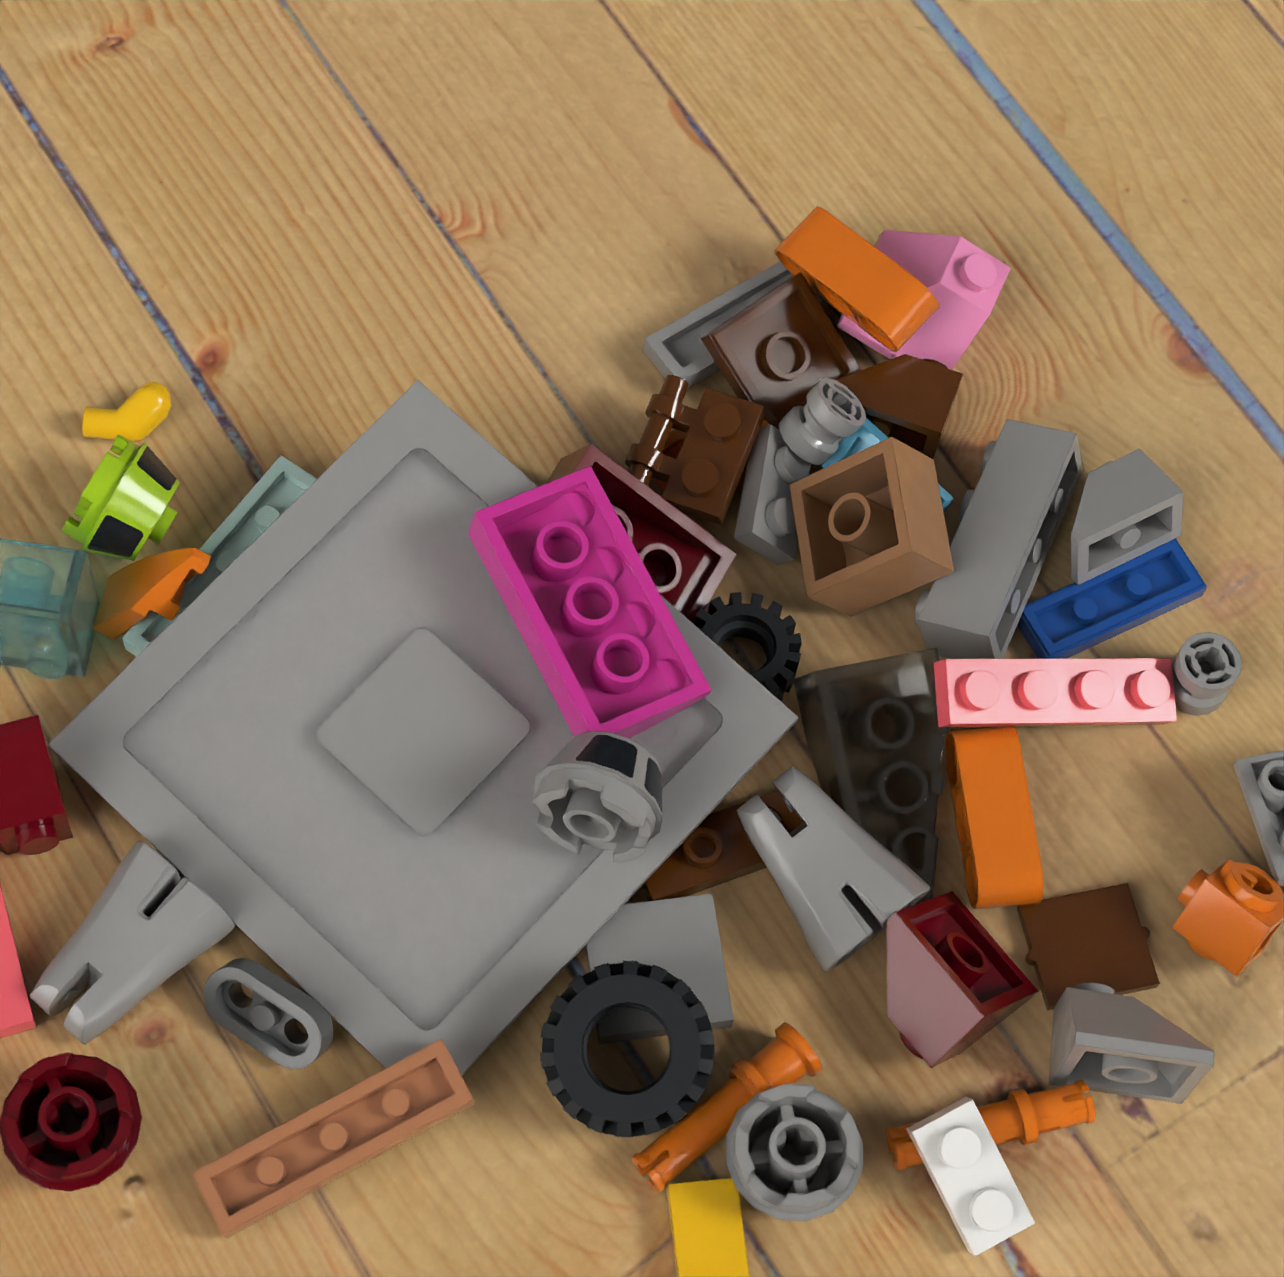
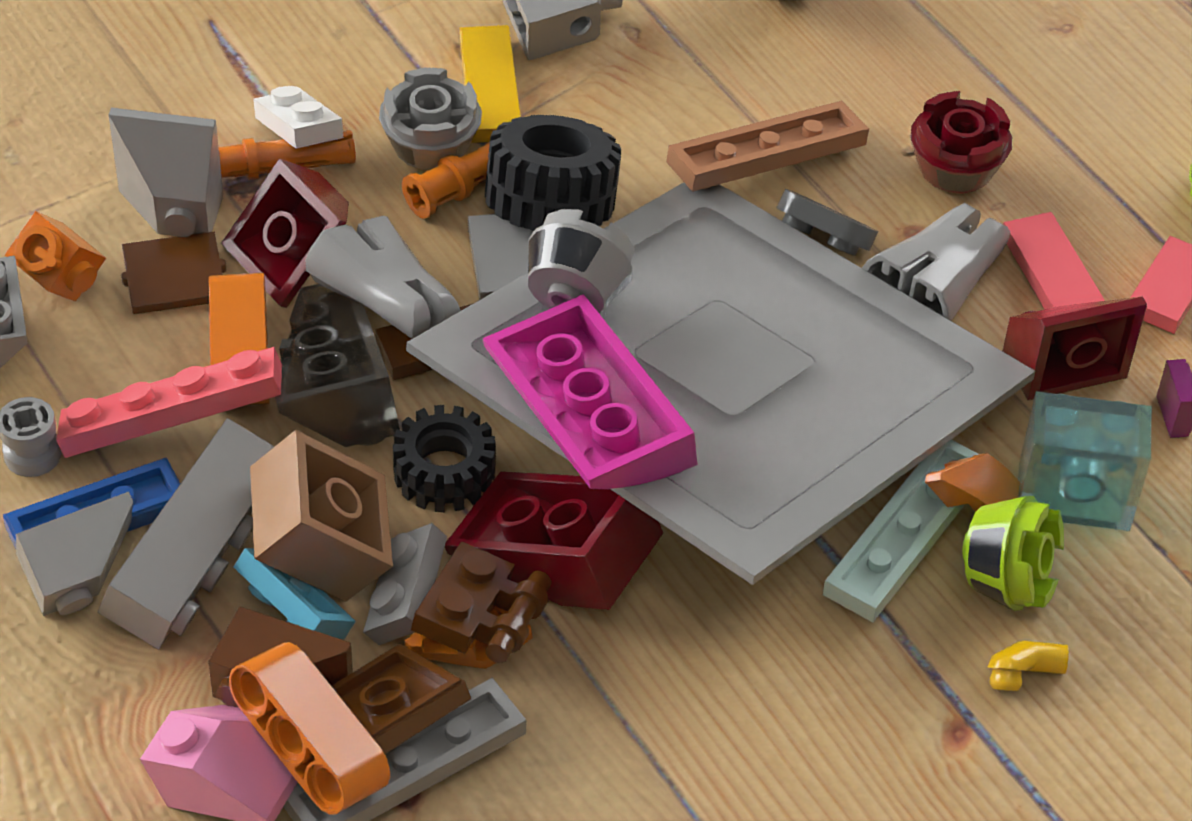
camera: 175 degrees left, 15 degrees down
(826, 417) = (356, 612): light grey wheel -> none

